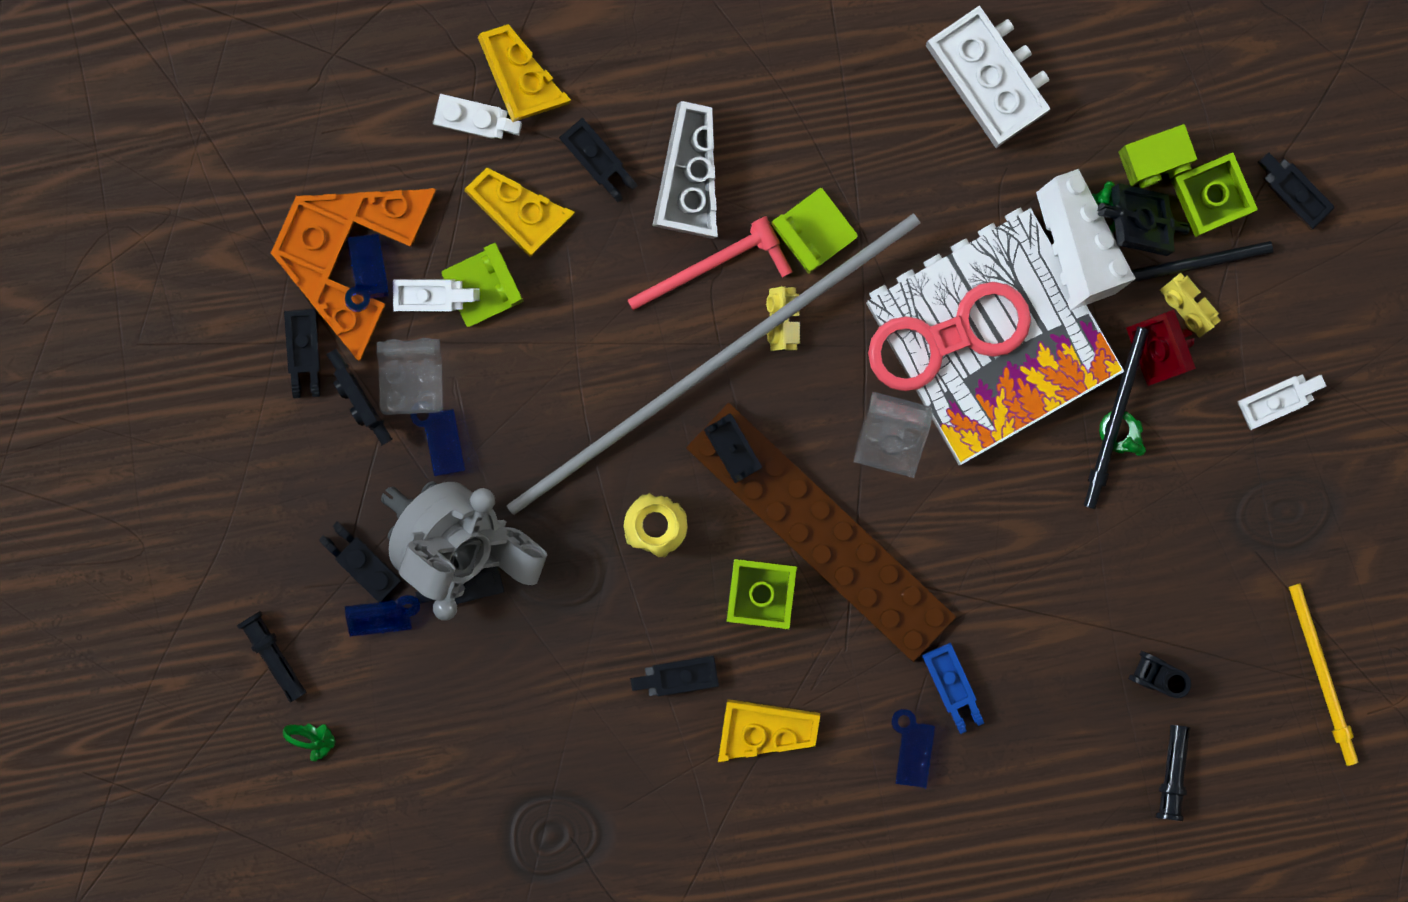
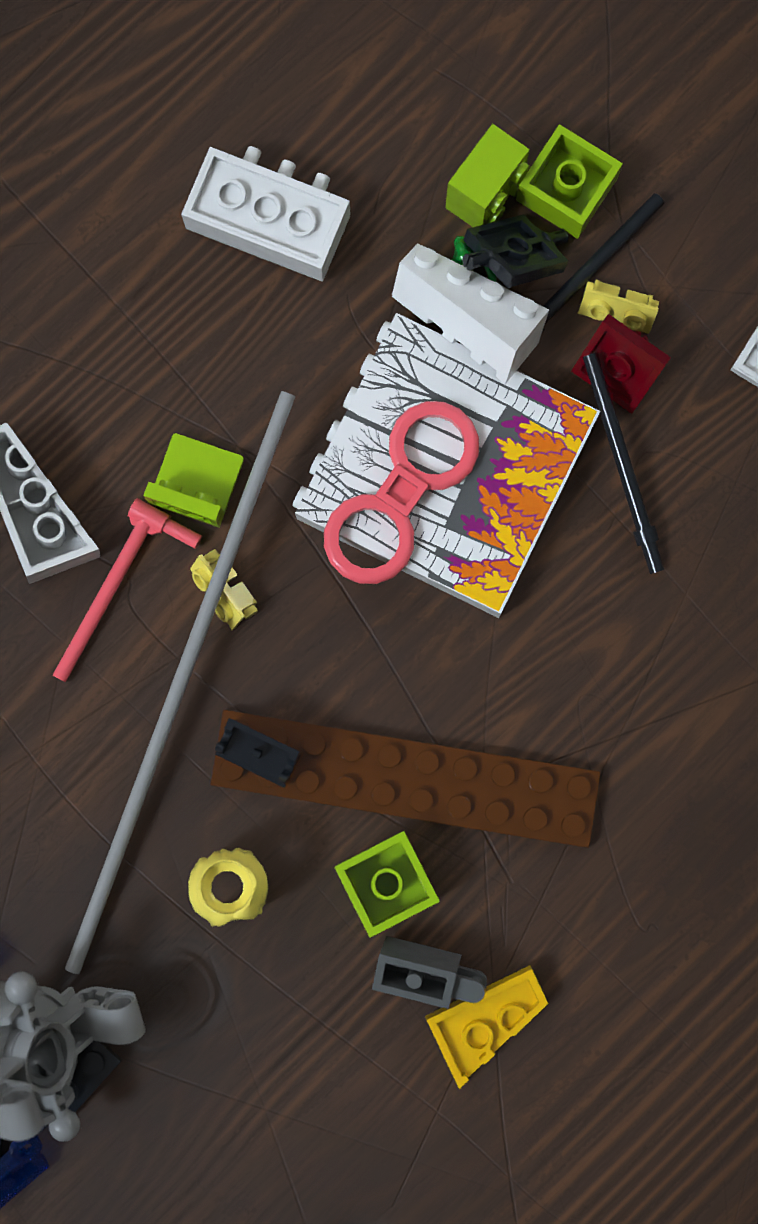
camera: 35 degrees left, 5 degrees down
(678, 677) = (357, 1029): black hinge -> none
(747, 671) = (426, 974): none -> dark grey brick
(893, 434) = (412, 629): clear brick -> none
(914, 750) = (651, 938): clear blue hinge -> none
(952, 684) = (643, 843): blue hinge -> none
(1133, 442) = (656, 475): green piece -> none
(1296, 190) = (644, 128): black hinge -> none

